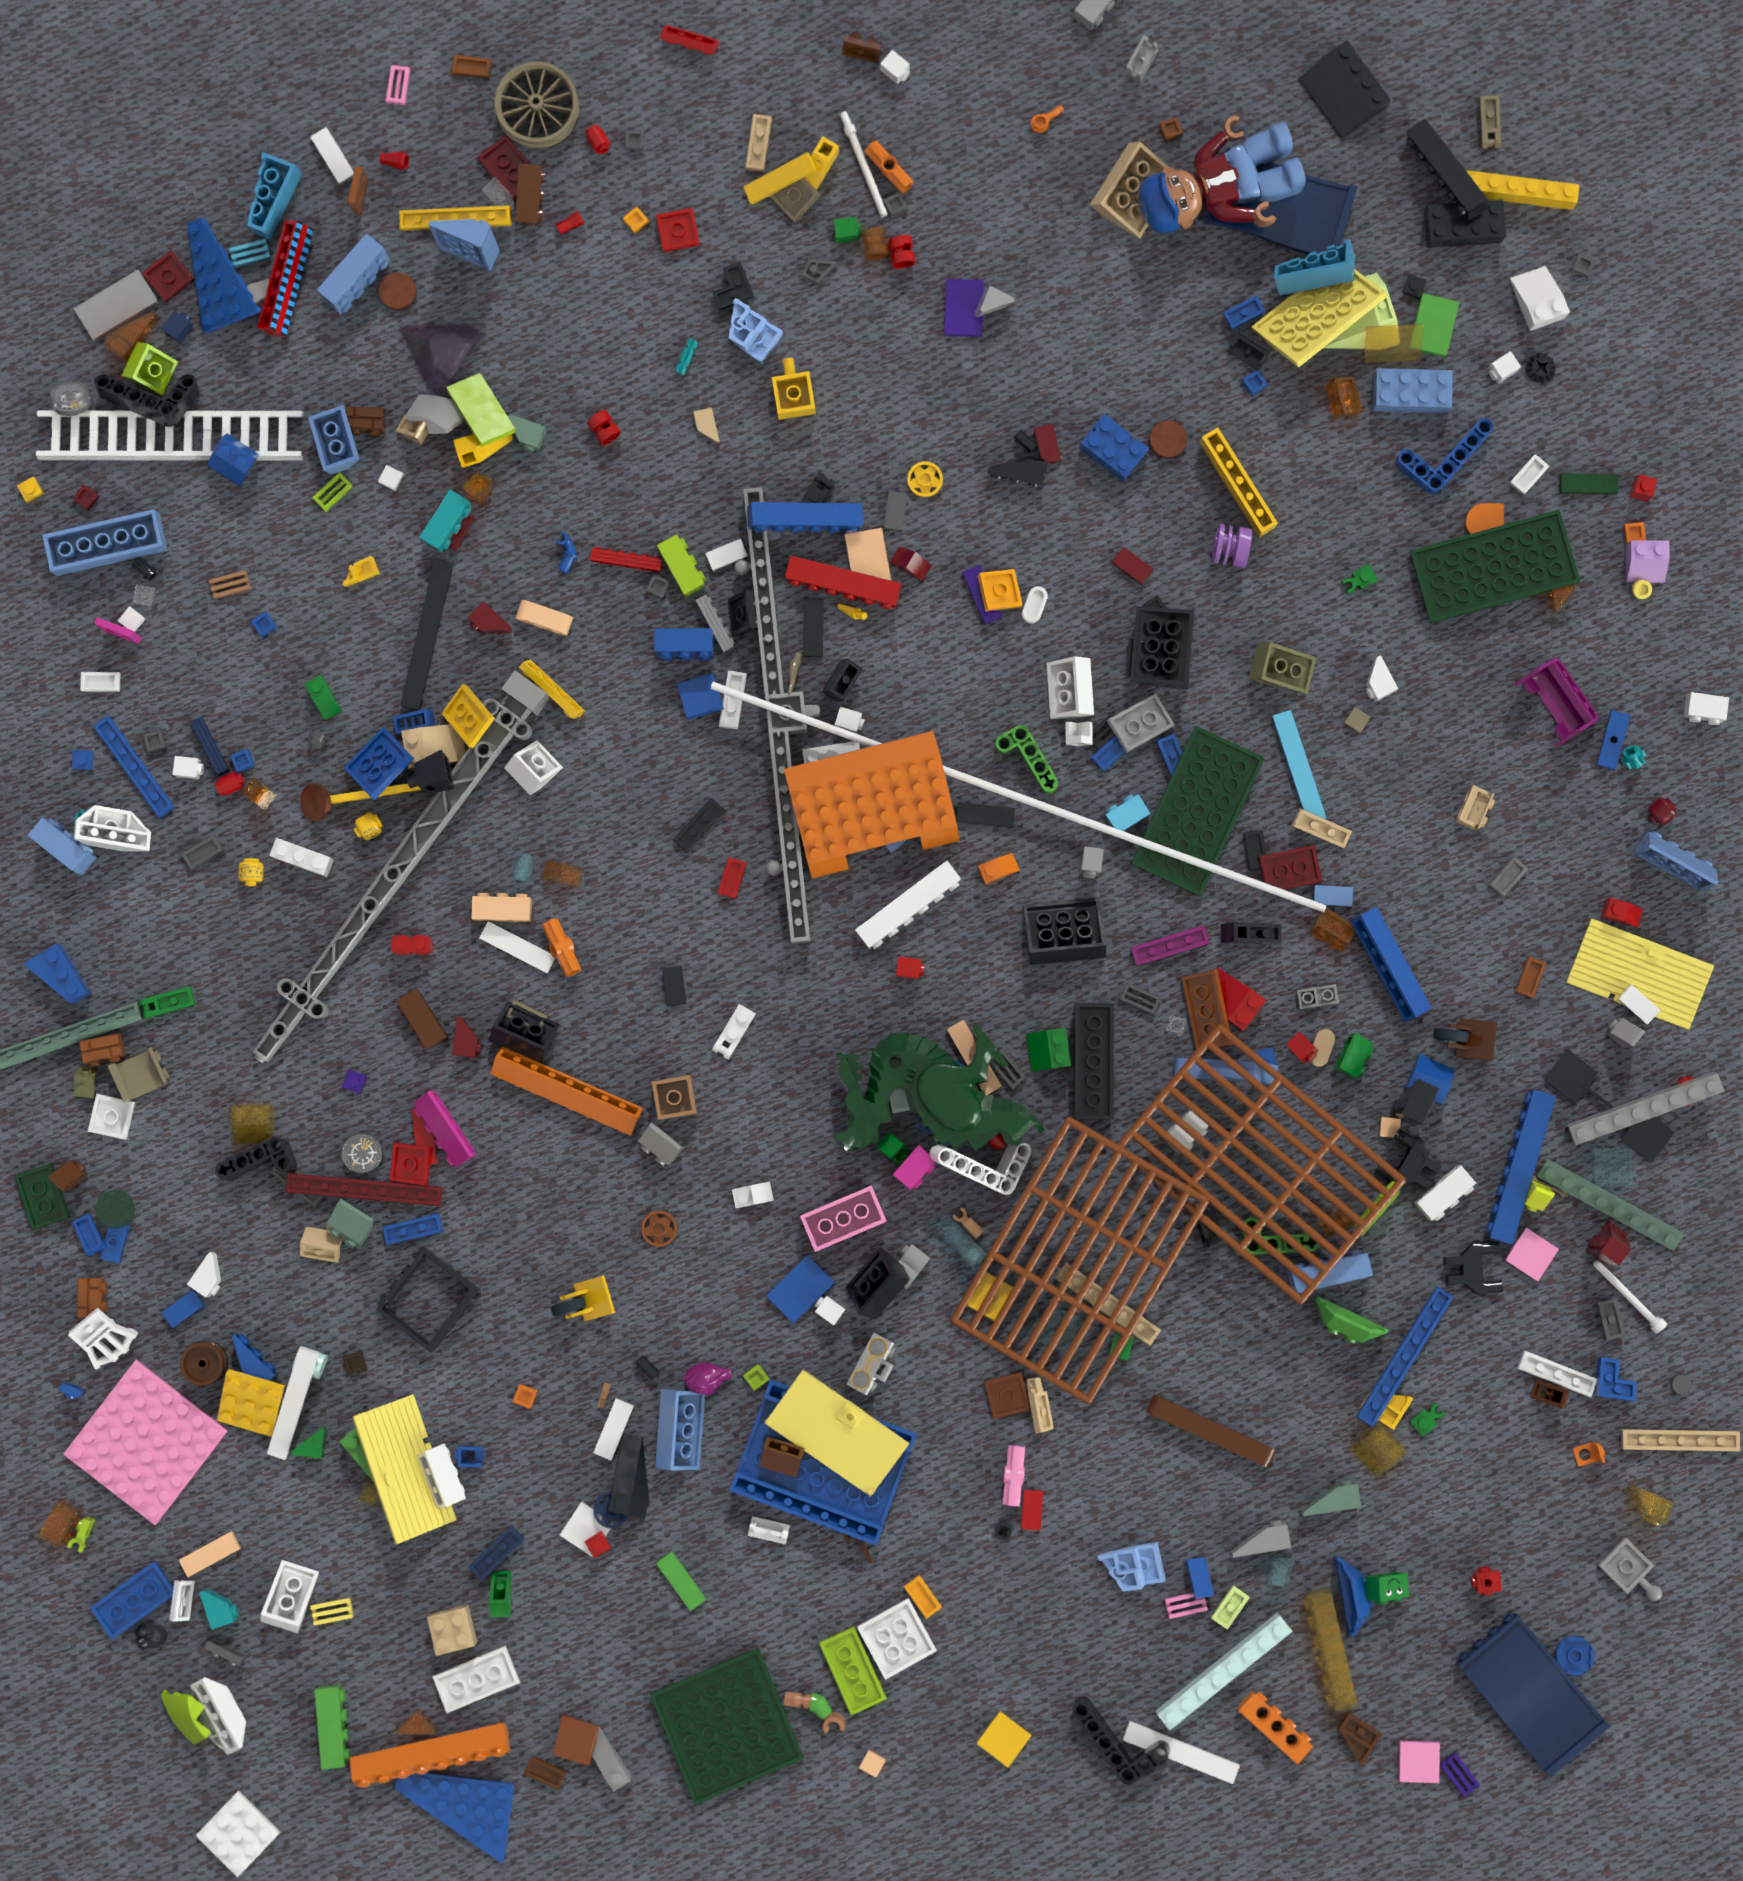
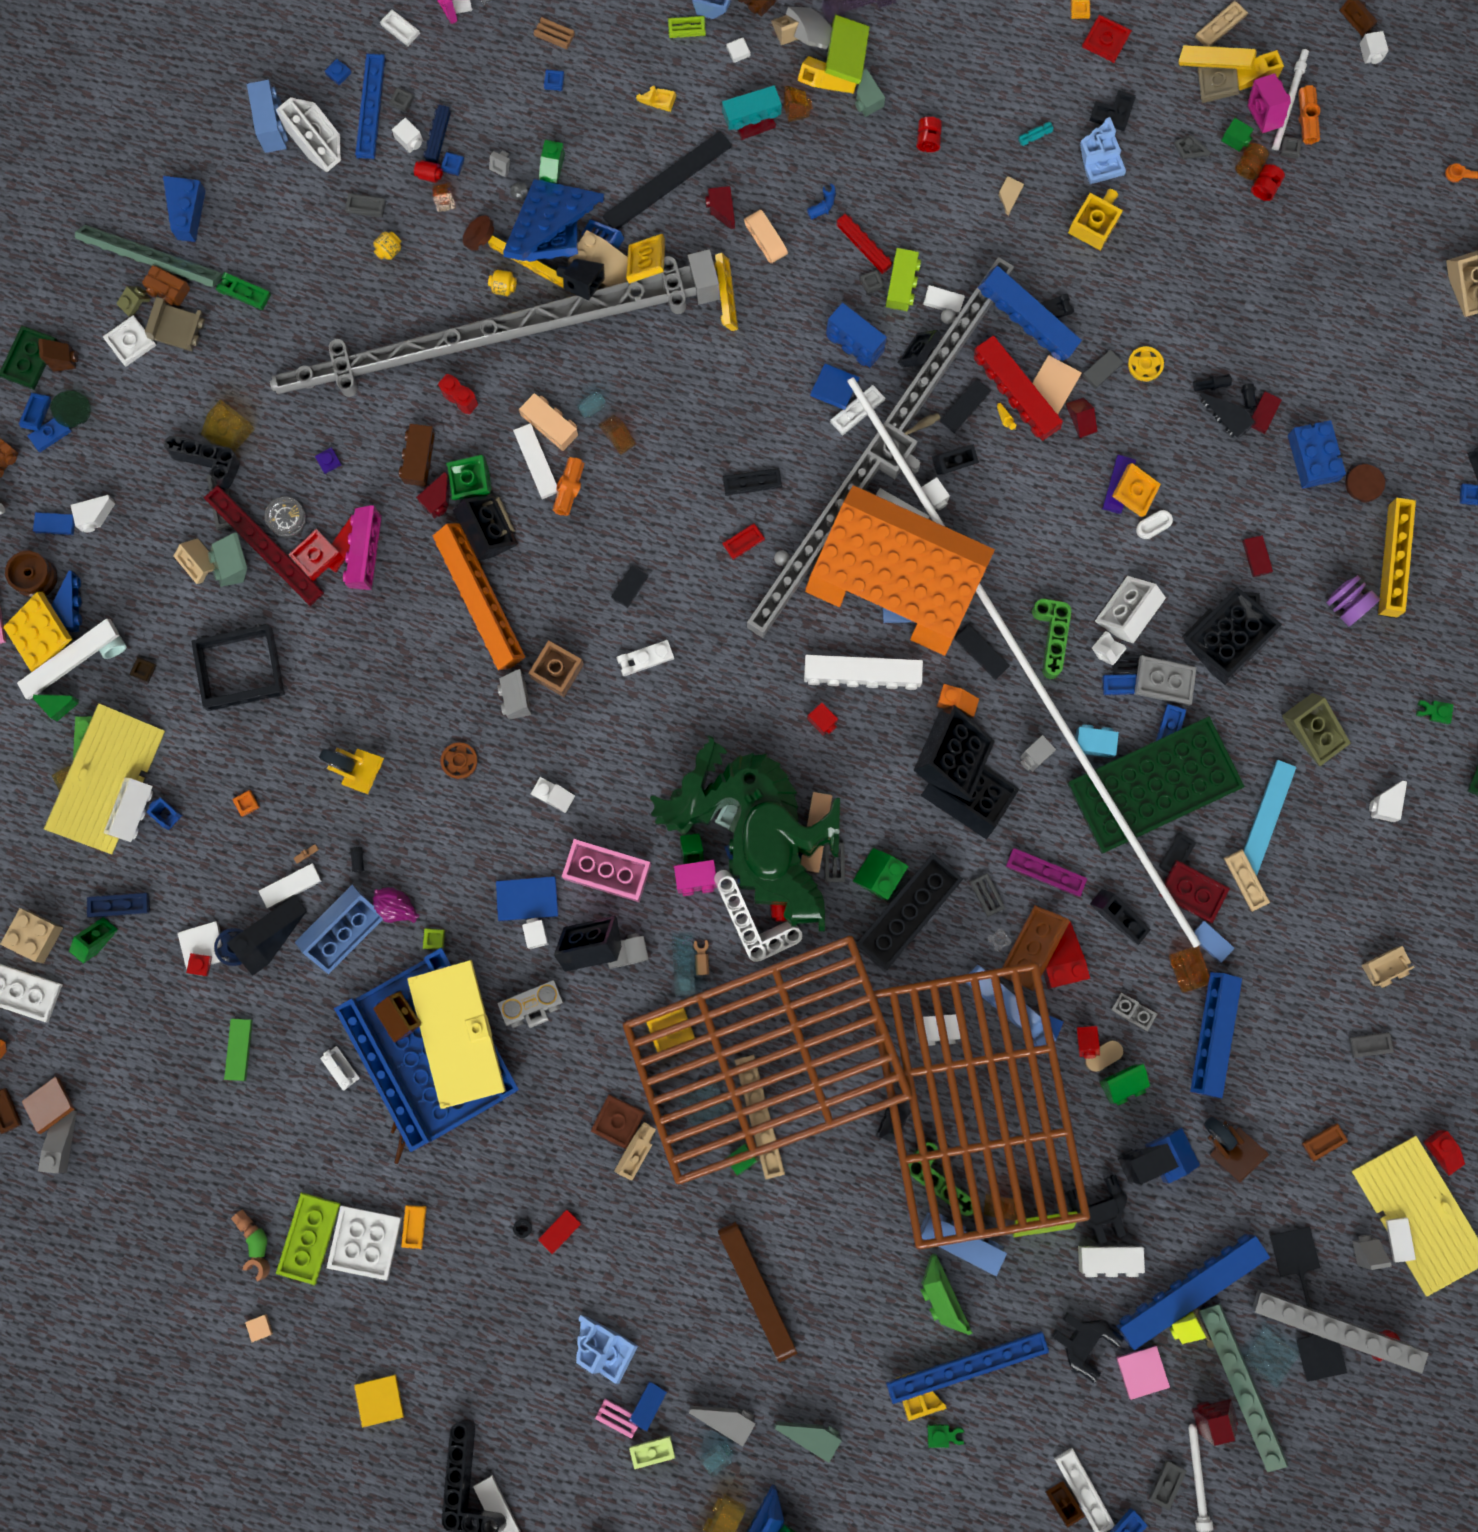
camera: 40 degrees right, 5 degrees down
(281, 730) = (499, 163): none -> light grey tile
(301, 857) = (433, 265): white brick -> none
(358, 744) = (545, 214): none -> blue wing
(412, 1229) = (273, 606): blue tile -> none
(478, 1004) = (469, 477): none -> green slope
(533, 767) = (662, 337): white slope -> none
(715, 623) = (892, 342): light grey piece -> none
(726, 1725) = (172, 1196): dark green plate -> none
(851, 186) = (1269, 103): none -> dark pink brick
(960, 307) = (1282, 261): dark purple tile -> none
(989, 453) = (1212, 382): none -> black axle
(992, 301) = (1310, 272): light grey slope -> none
(1013, 1475) = (568, 1190): bright pink piece -> none
(1030, 913) = (954, 753): none -> black slope
(1223, 1671) = (601, 1501): light aqua brick -> none
(1357, 720) = (1344, 819): dark tan tile -> none
(1378, 1449) = (882, 1426): clear yellow slope -> none
(1389, 1126) = (1107, 1166): light nougat tile -> none

